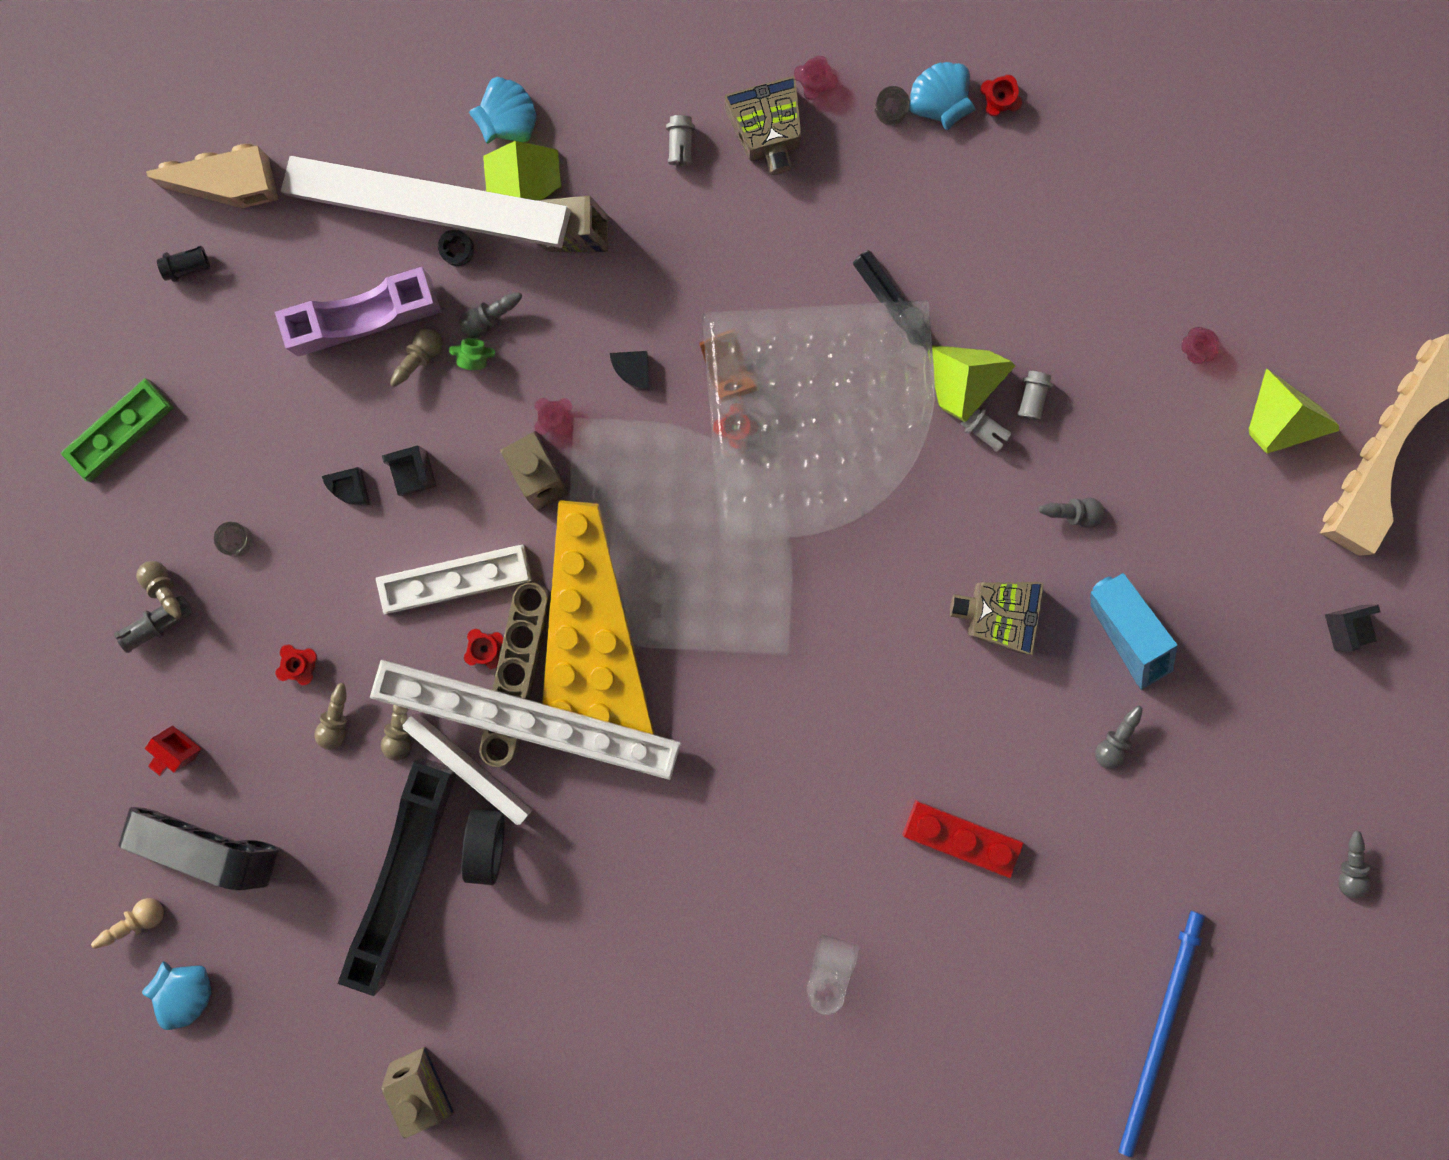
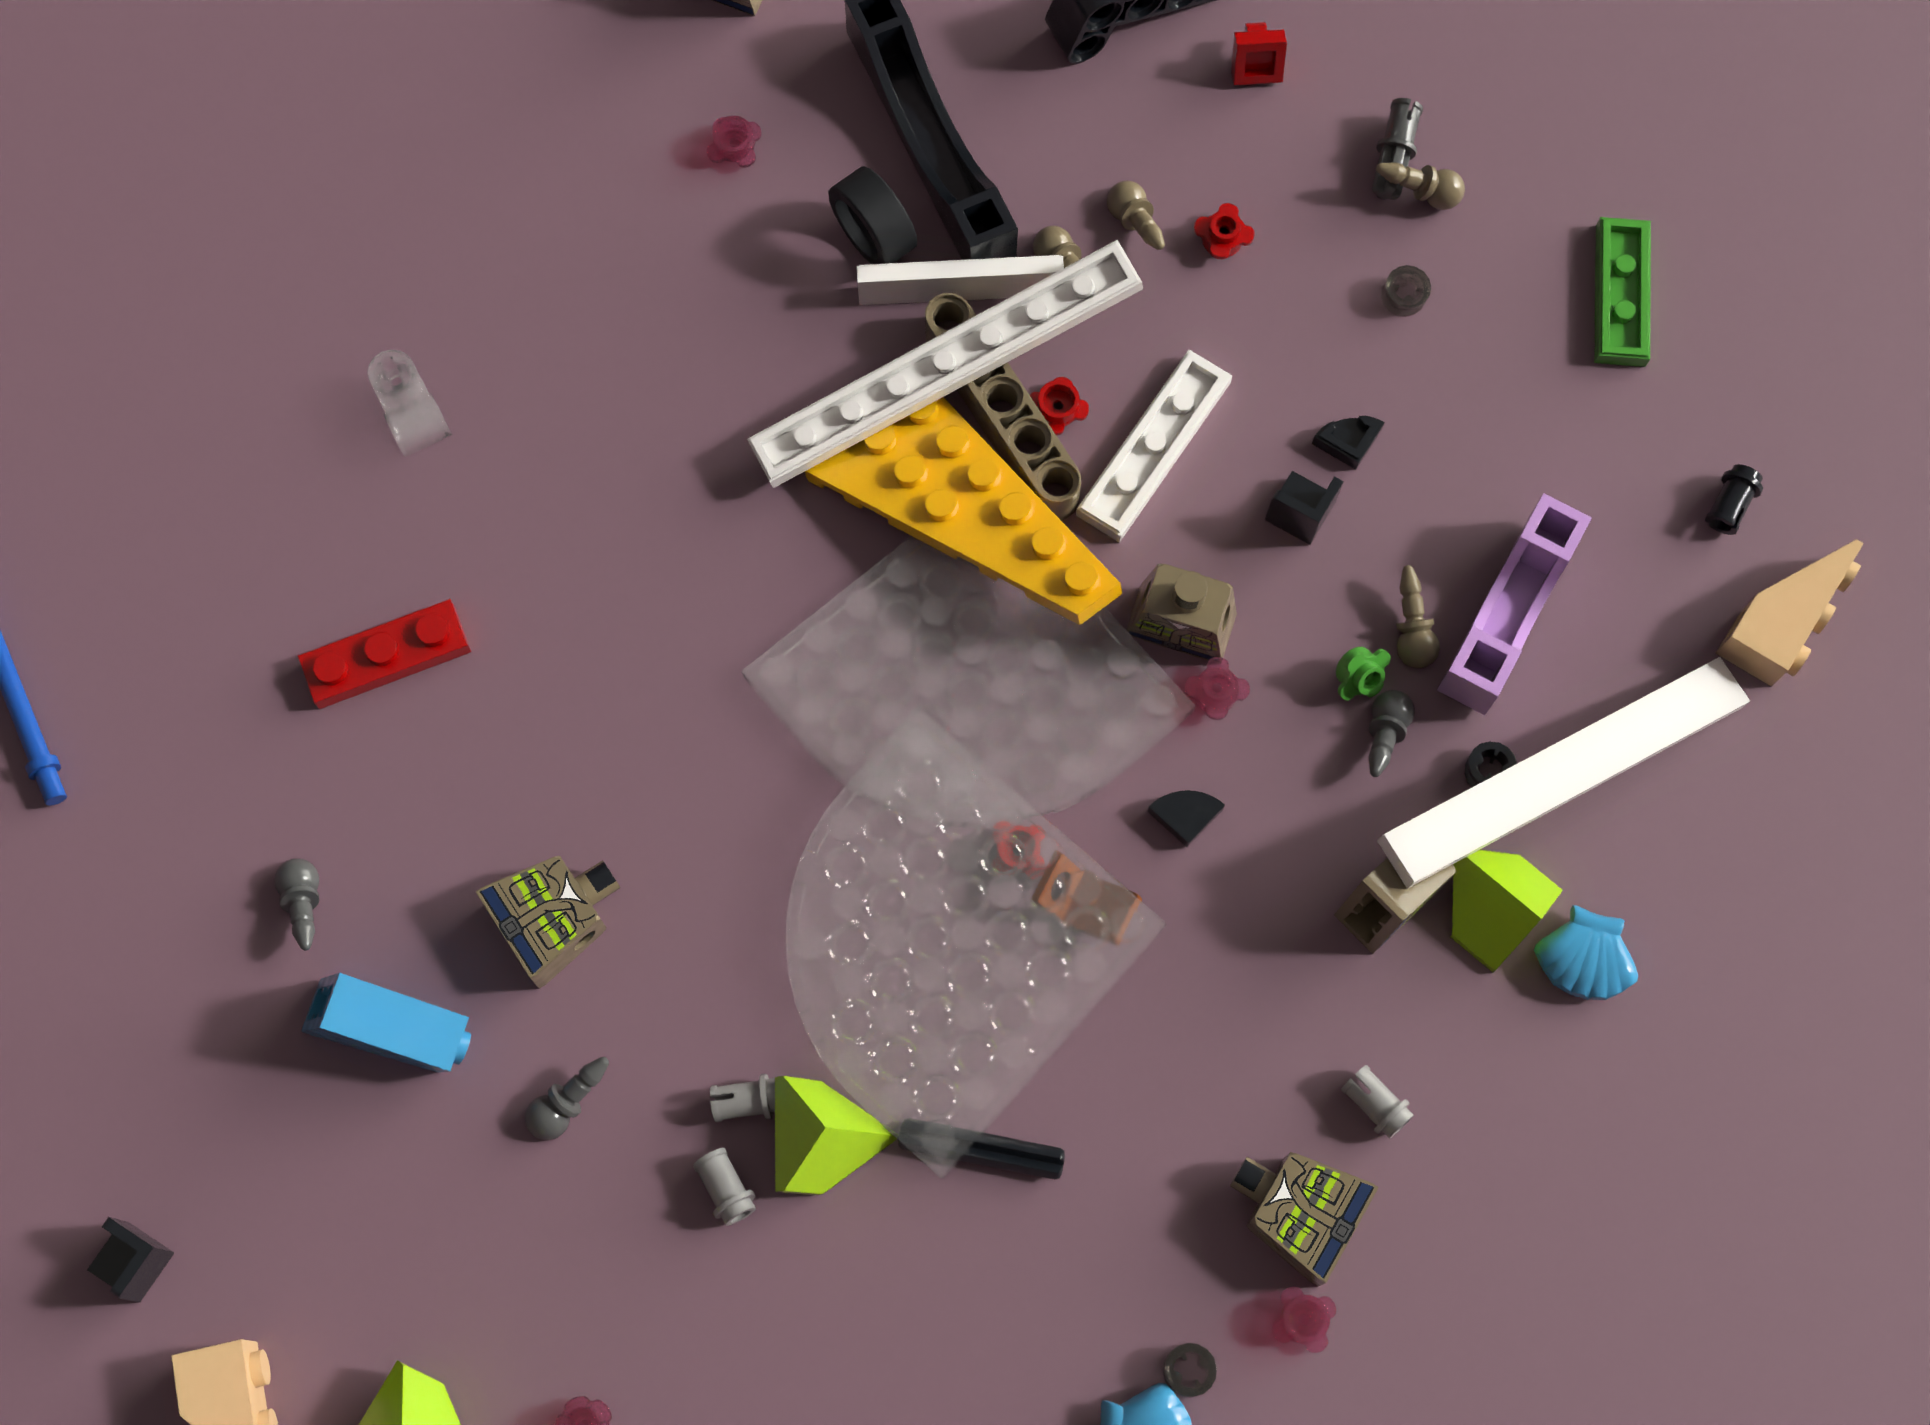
camera: 135 degrees right, 15 degrees down
(507, 983) = (730, 129): none -> clear pink plate

